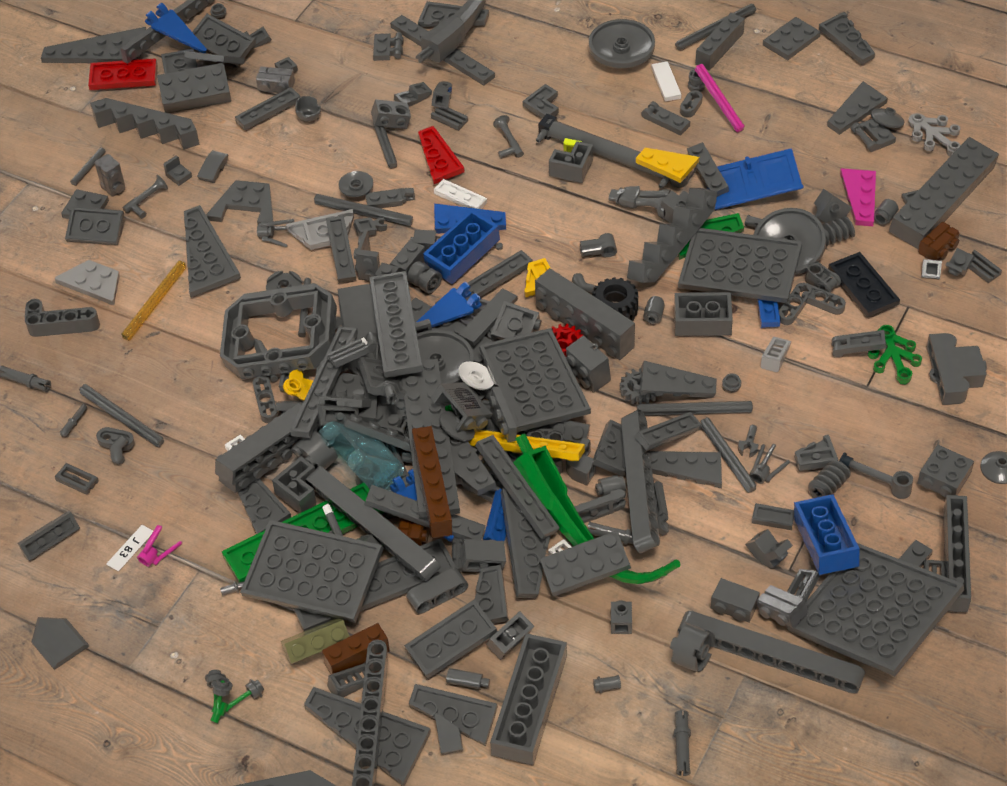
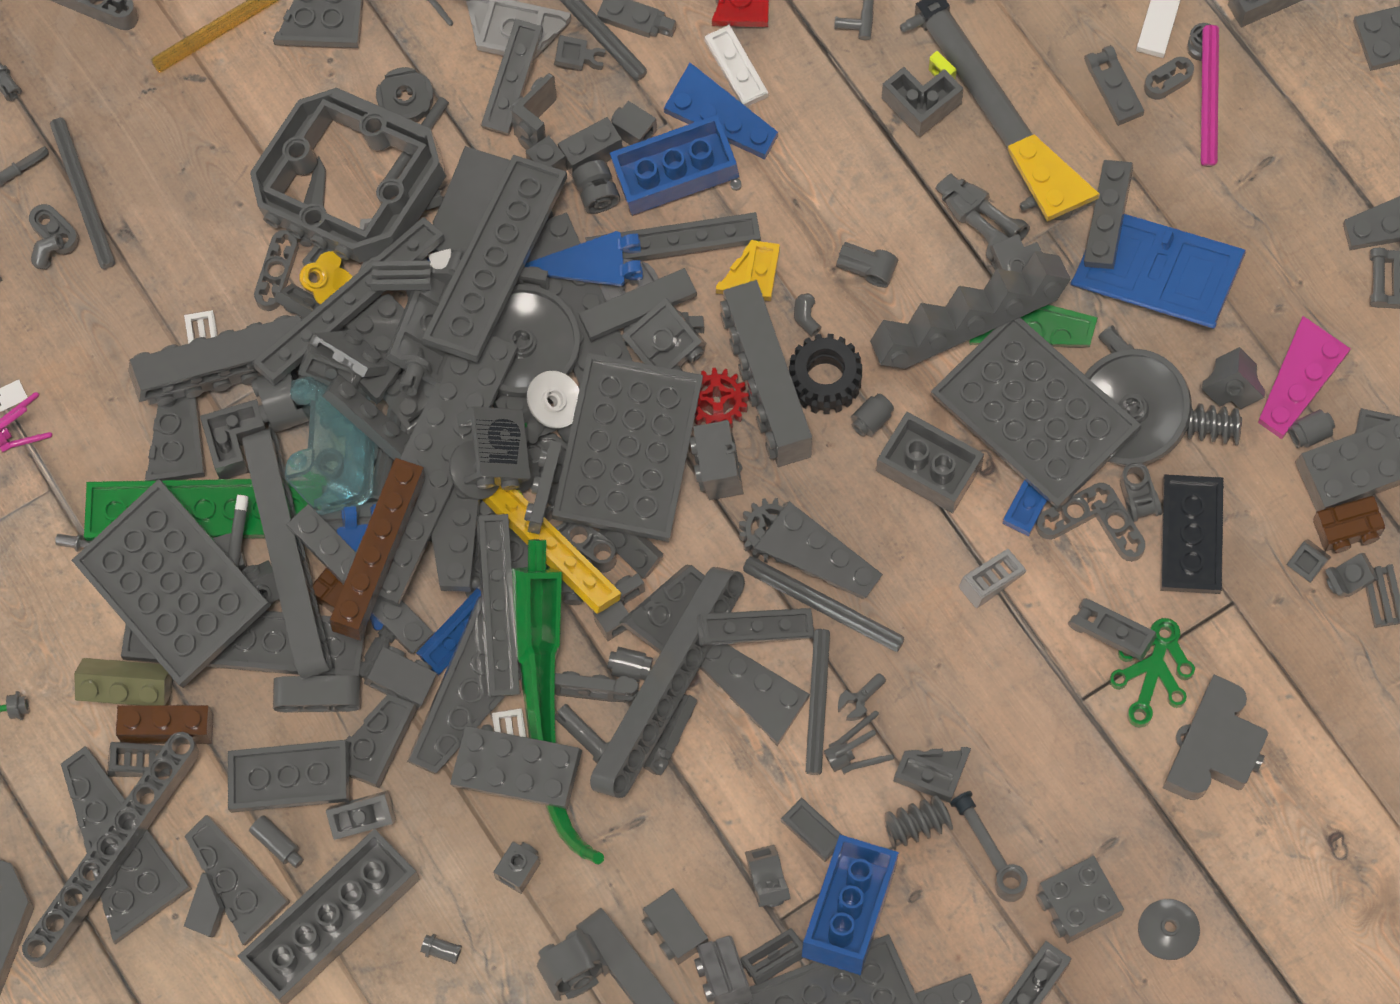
camera: 30 degrees right, 20 degrees up
(731, 382) = (899, 592): dark grey plate -> none

